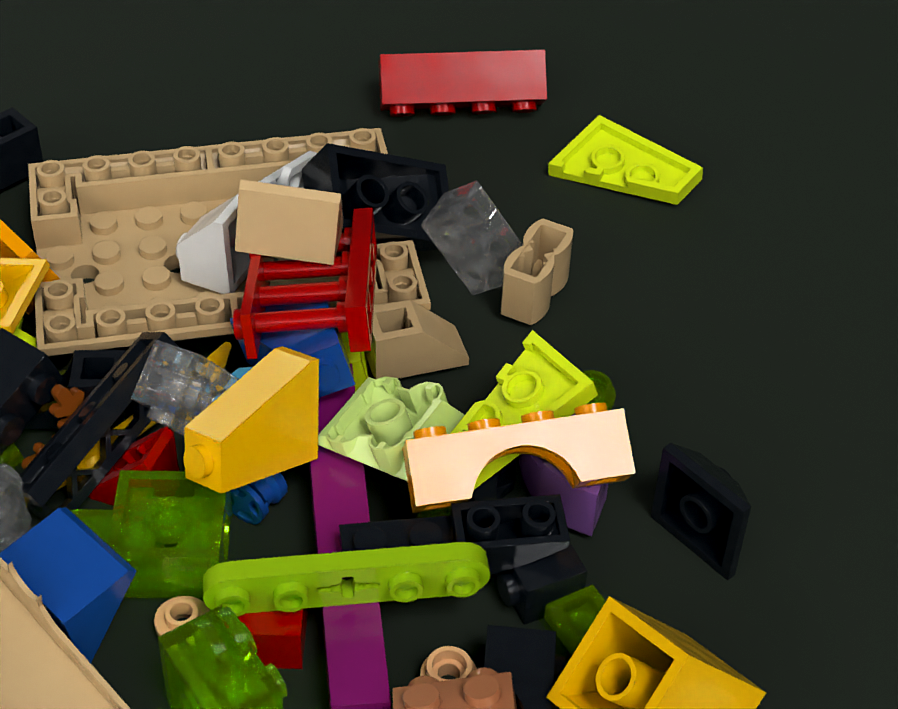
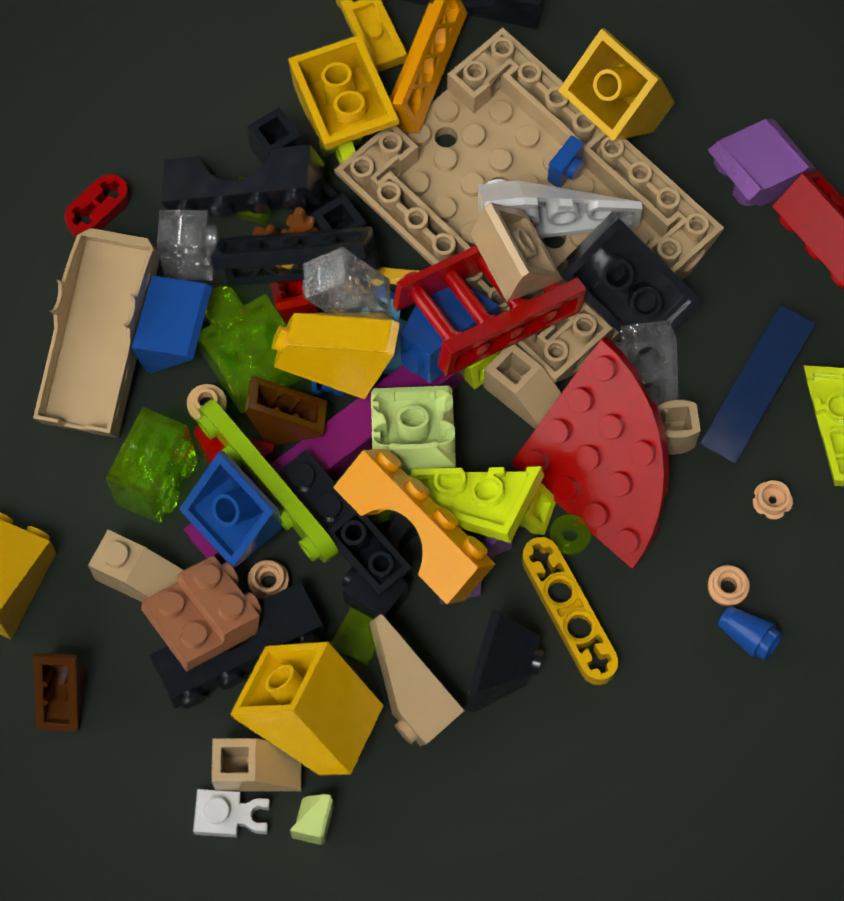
camera: 60 degrees right, 25 degrees up
(180, 100) = (617, 90): none -> yellow slope
(211, 185) = (566, 162): none -> blue plate
(274, 526) = (284, 413): none -> reddish brown slope
(330, 99) = (760, 162): none -> medium lavender slope
(356, 626) = (231, 511): none -> blue slope
(530, 276) = (605, 453): none -> red plate
(543, 190) = (758, 384): none -> dark blue slope
(663, 242) = (772, 489): none -> light nougat plate
(677, 425) = (566, 611): none -> yellow beam
(696, 594) = (412, 689): none -> tan slope
(729, 310) = (734, 575): none -> light nougat plate
(792, 317) = (750, 632): none -> blue cone

